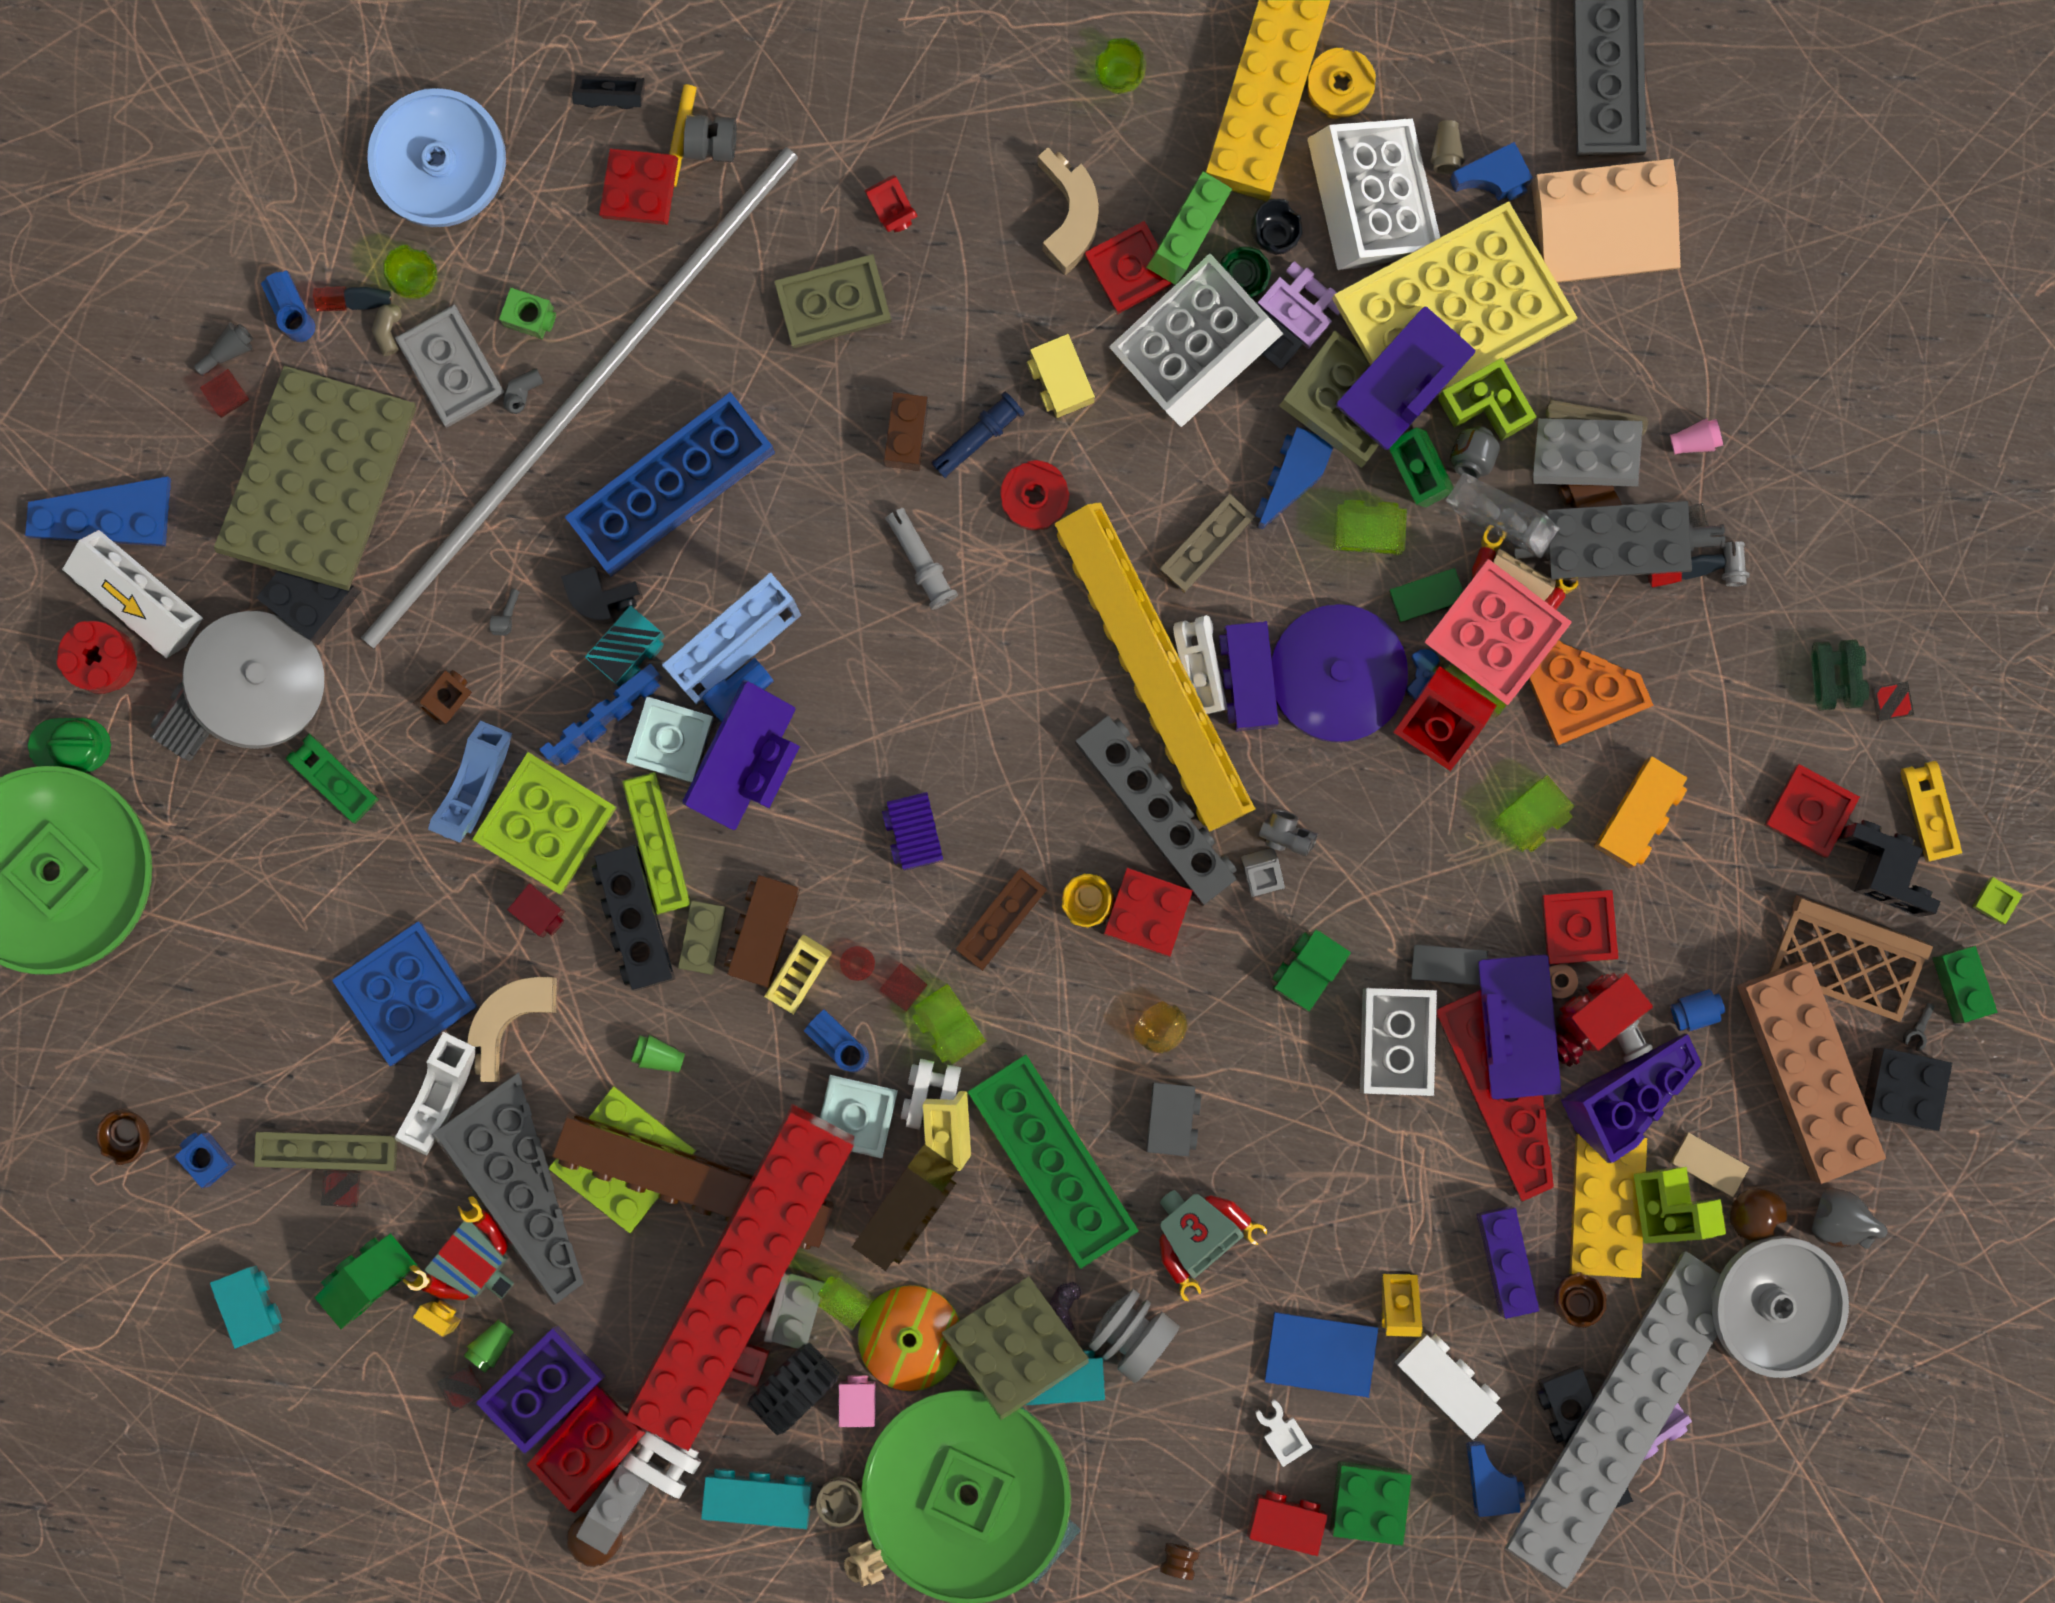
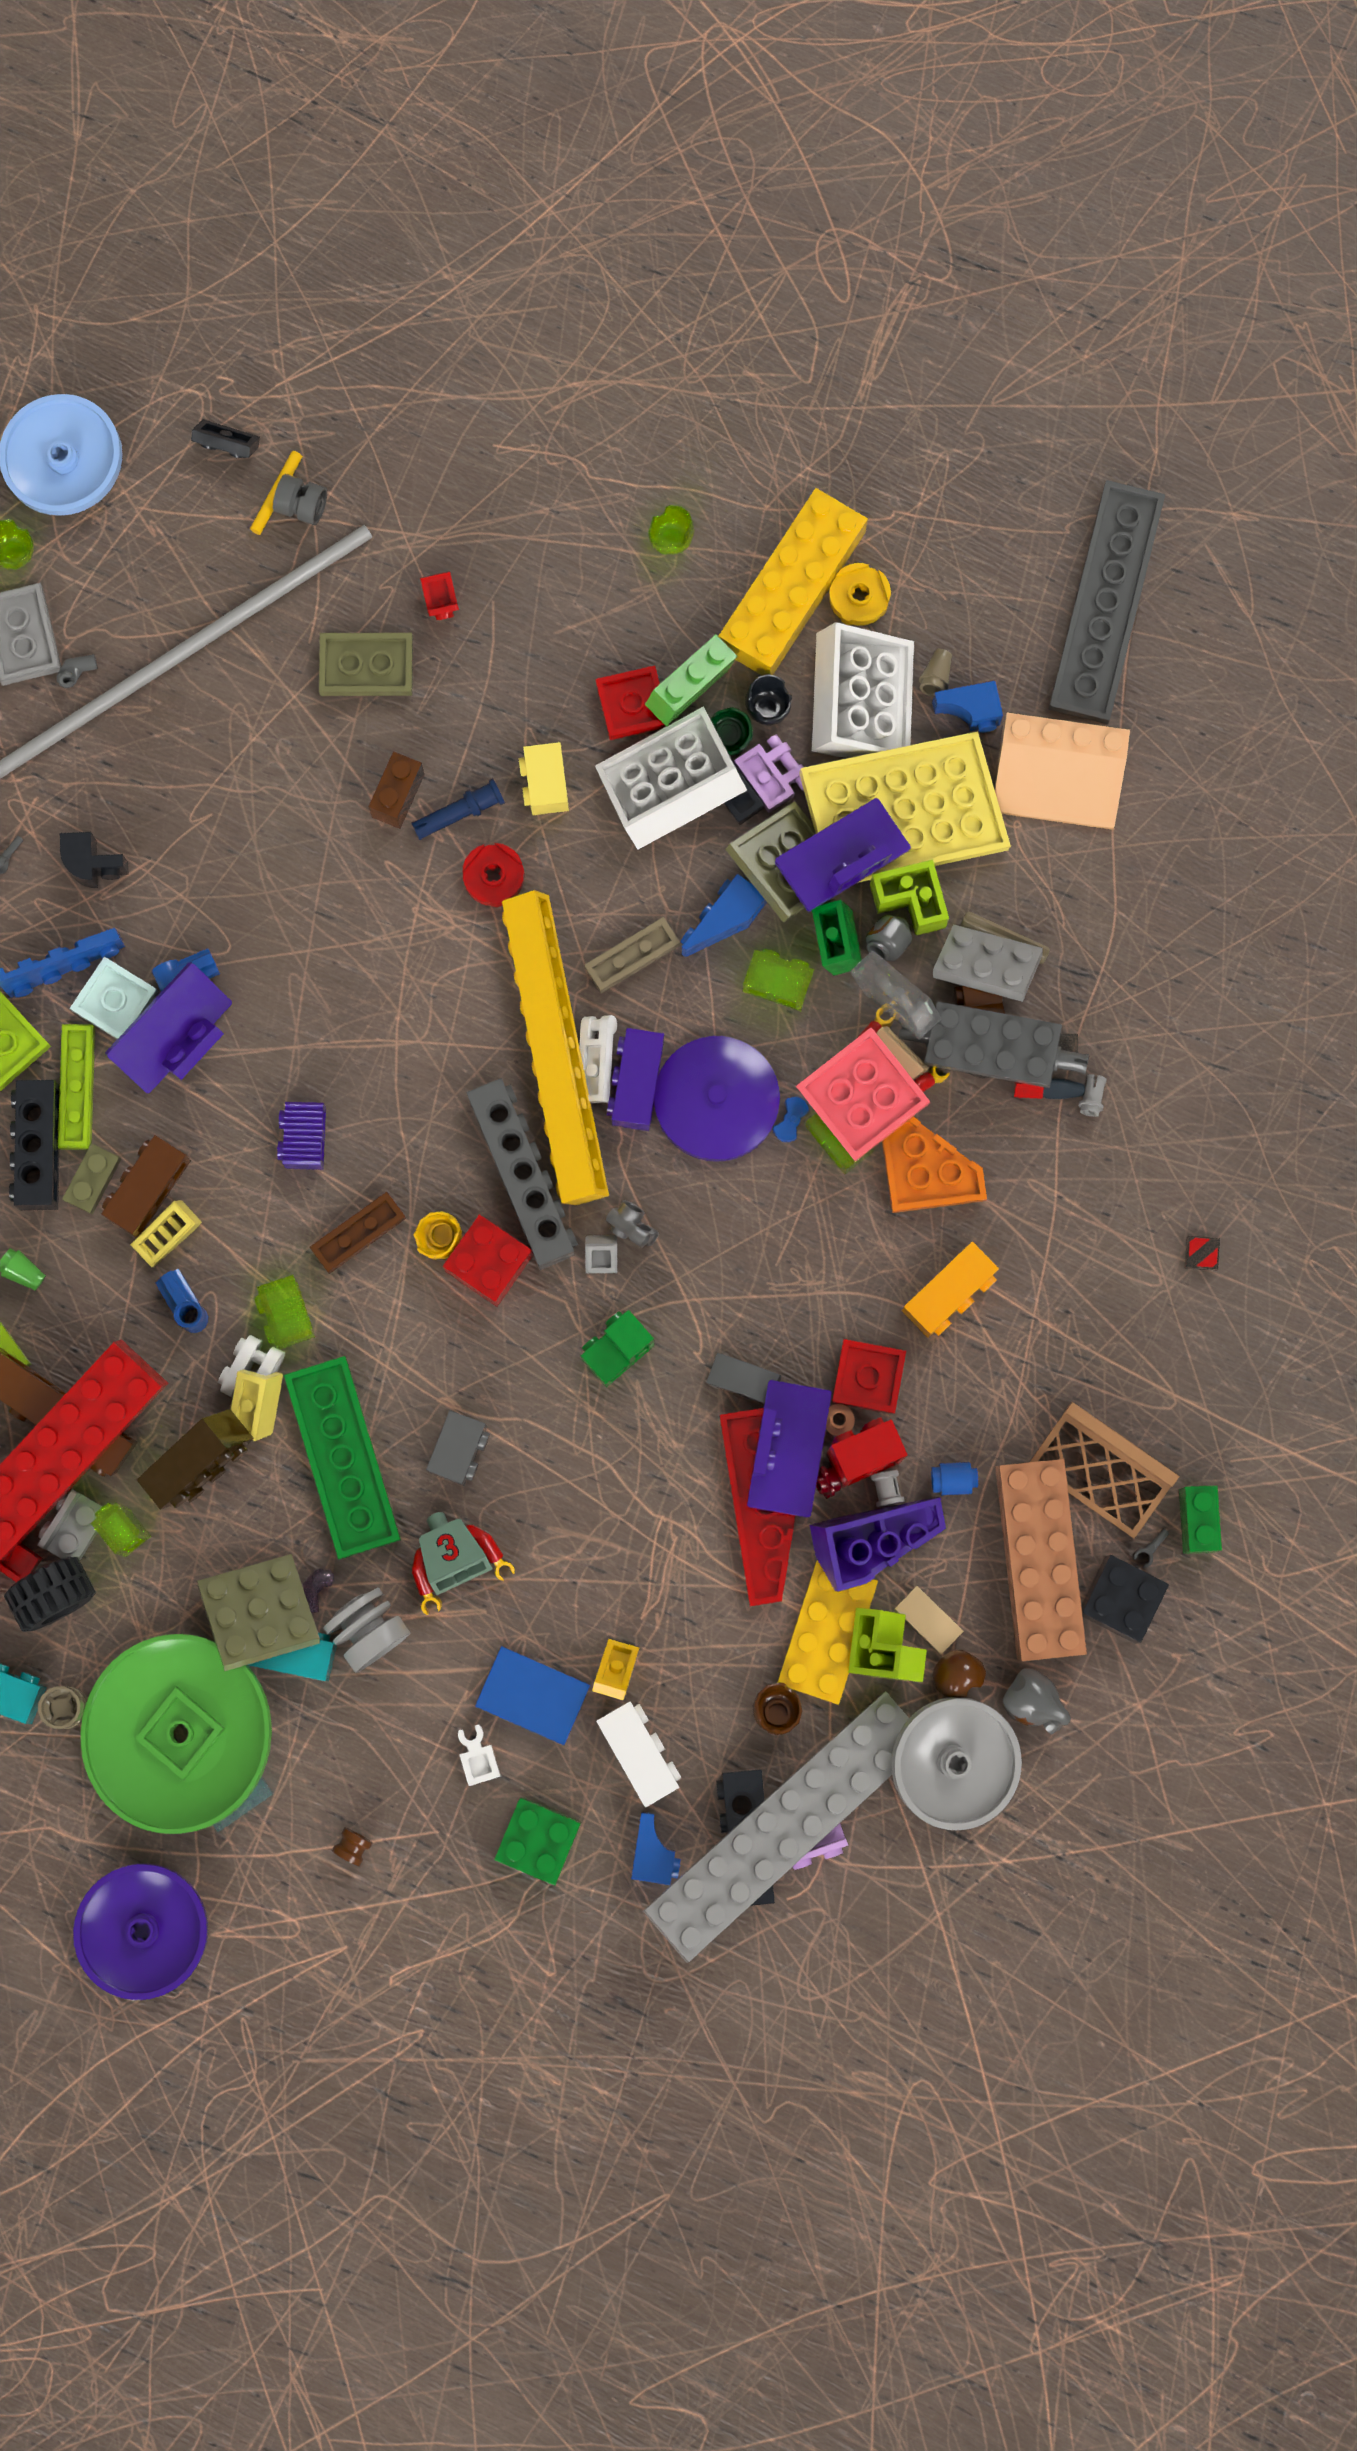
camera: 15 degrees right, 5 degrees down
(517, 303) = (93, 595): bright green brick -> none
(626, 647) = (99, 908): brick -> none
(638, 186) = (227, 525): red plate -> none
(670, 484) = (177, 781): blue brick -> none
(733, 637) = (187, 920): light blue window -> none
(857, 1402) = (105, 1624): bright pink brick -> none
(861, 1111) = (186, 1369): light aqua plate -> none
(864, 1564) = (69, 1771): tan gear -> none
(869, 963) = (227, 1244): clear red plate -> none
(882, 1332) = (176, 1604): orange dish -> none
(903, 987) = (255, 1269): clear red plate -> none
(928, 573) = (381, 916): light grey pin -> none
(1078, 231) = (602, 649): tan arch -> none
(1161, 1028) = (471, 1365): clear yellow hair -> none
(1287, 1523) = (458, 1839): red brick -> none
(1398, 1041) = (677, 1433): white brick -> none
(1426, 595) = (810, 1050): green tile -> none
(1445, 718) = (797, 1159): red brick -> none
(1507, 1262) = (722, 1656): dark purple brick -> none
(1534, 814) = (854, 1266): clear neon green brick -> none
(1697, 438) = (1089, 977): bright pink cone -> none
(1812, 811) = (1104, 1329): red plate -> none
(1850, 660) = (1174, 1205): clear green brick -> none
(1889, 869) = (1158, 1396): black bracket -> none
(1931, 812) = (1211, 1359): yellow plate -> none
(1997, 900) = (1249, 1453): lime plate -> none

